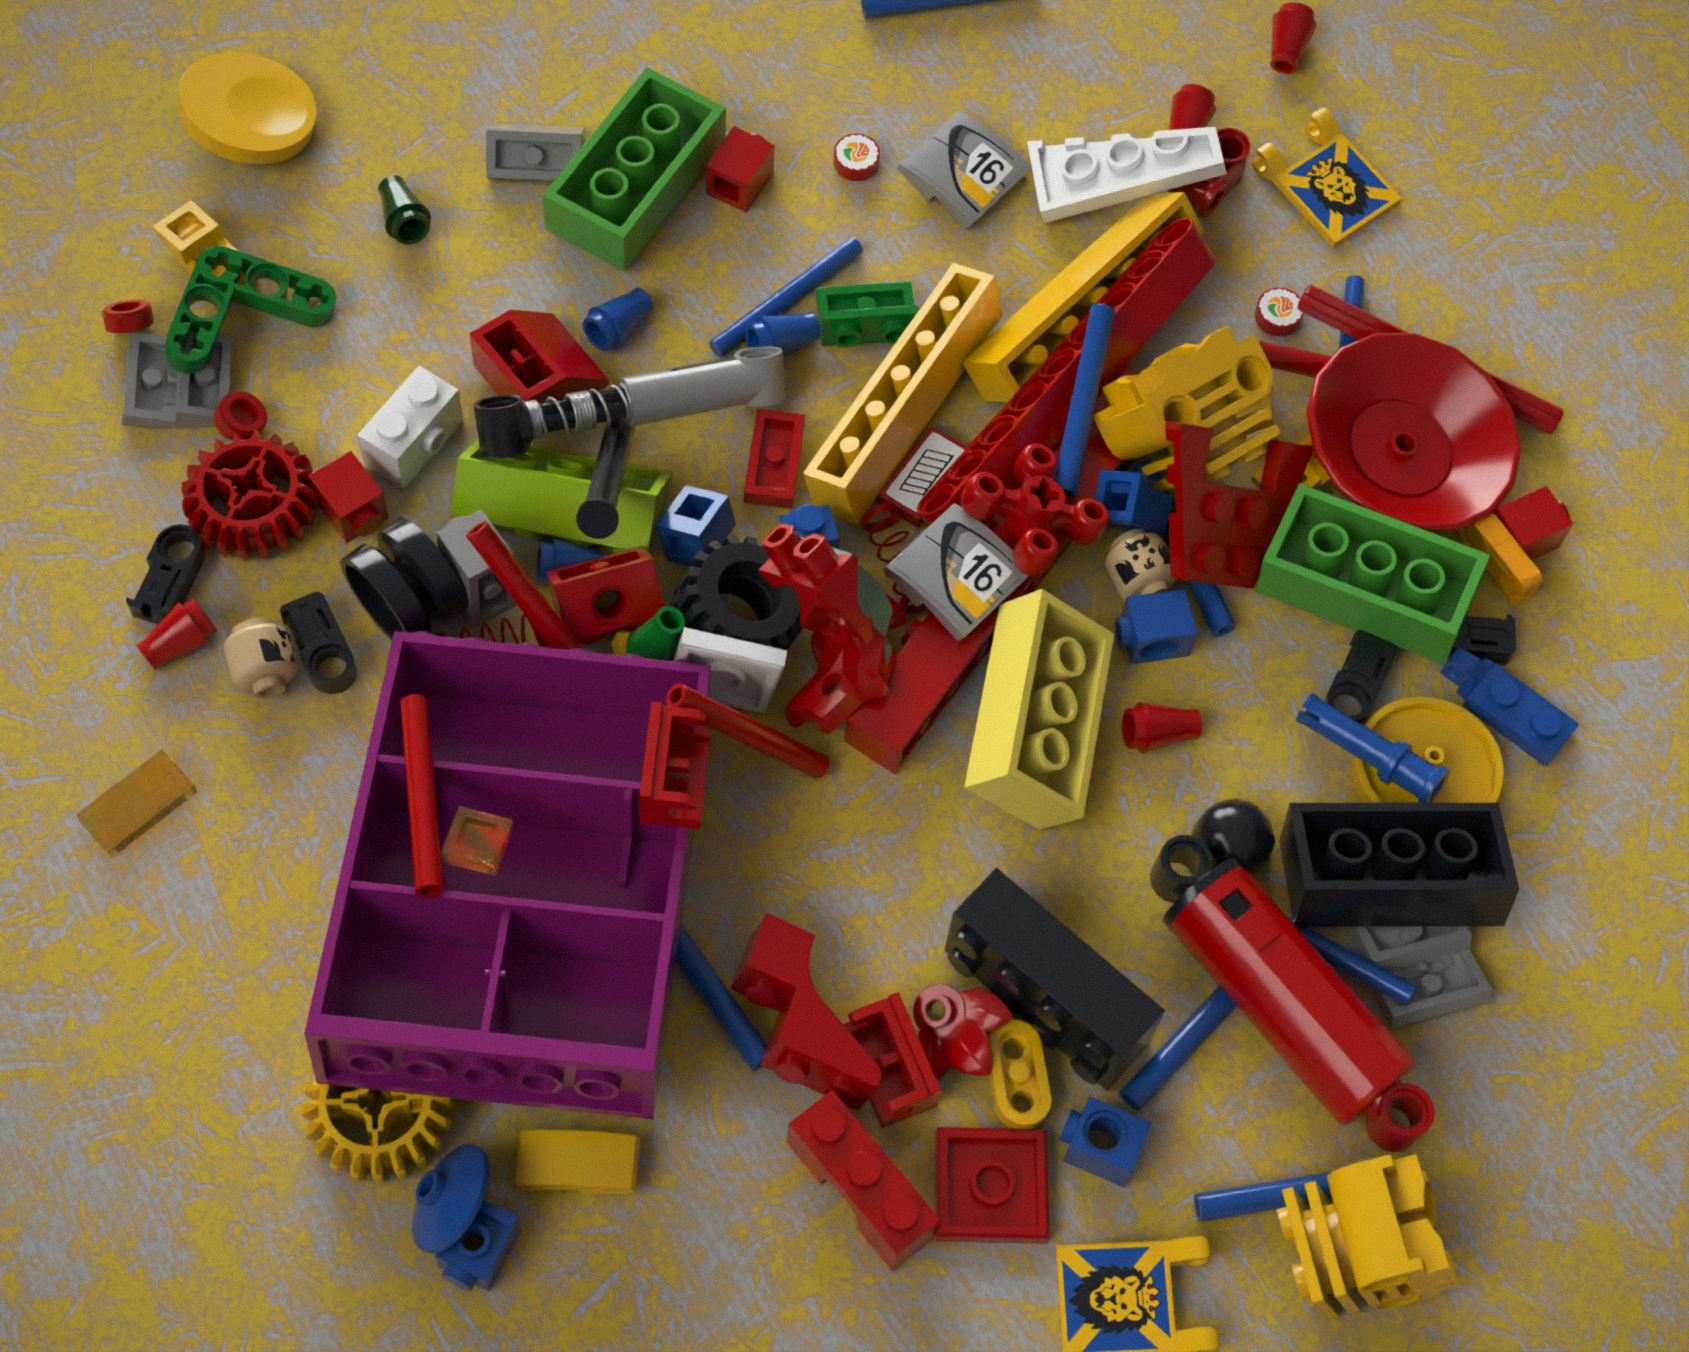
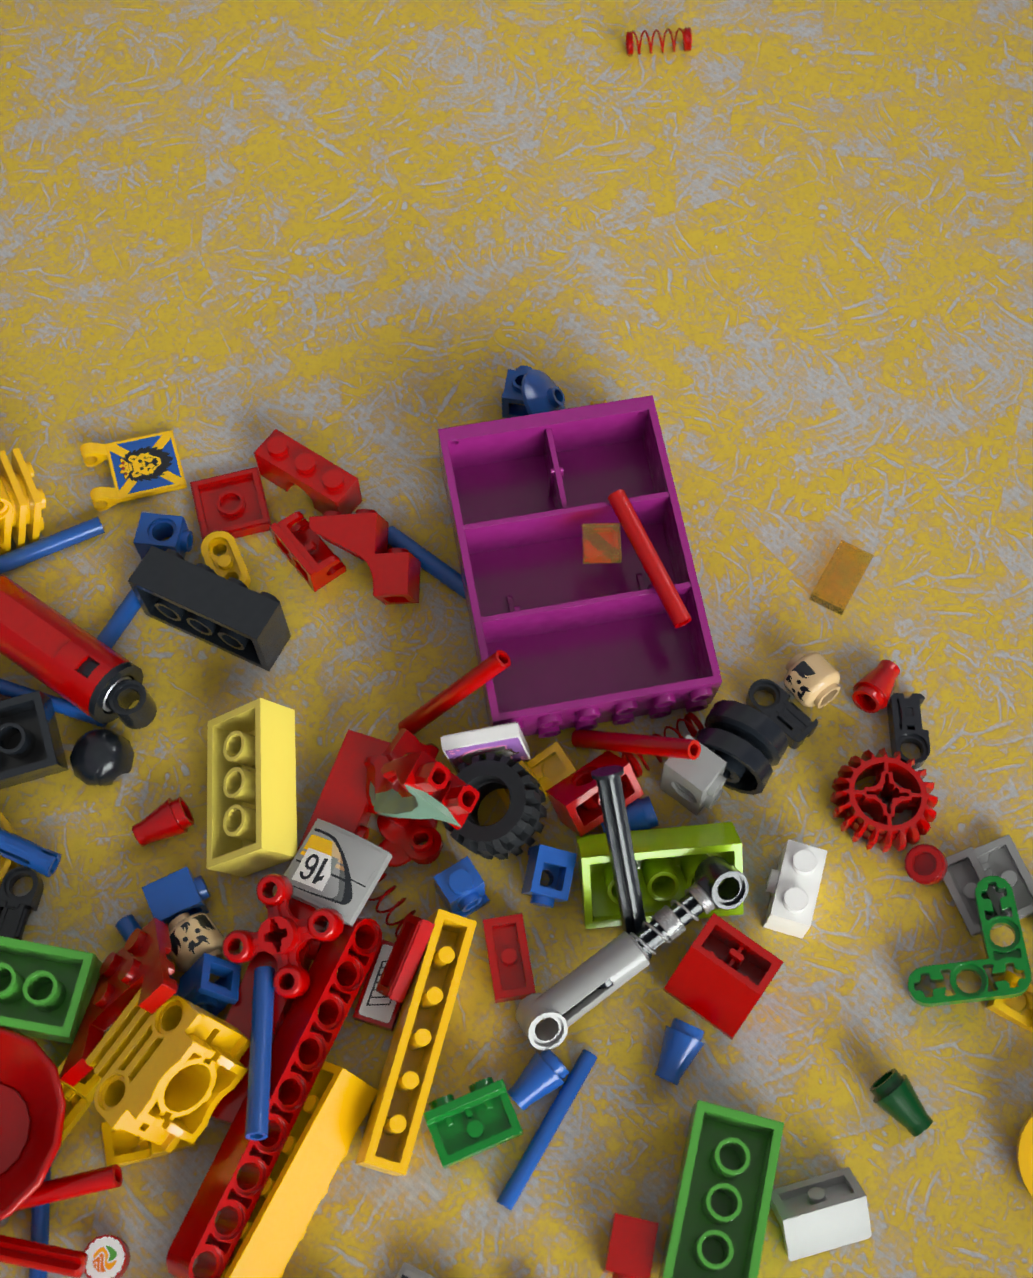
camera: 170 degrees right, 0 degrees up
(349, 497) = (812, 818): red brick -> none
(658, 635) = (545, 762): green cone -> none
(674, 767) = (488, 617): red hinge -> none
(896, 465) = (405, 958): none -> red tile
(961, 1034) = (271, 576): red plate -> none

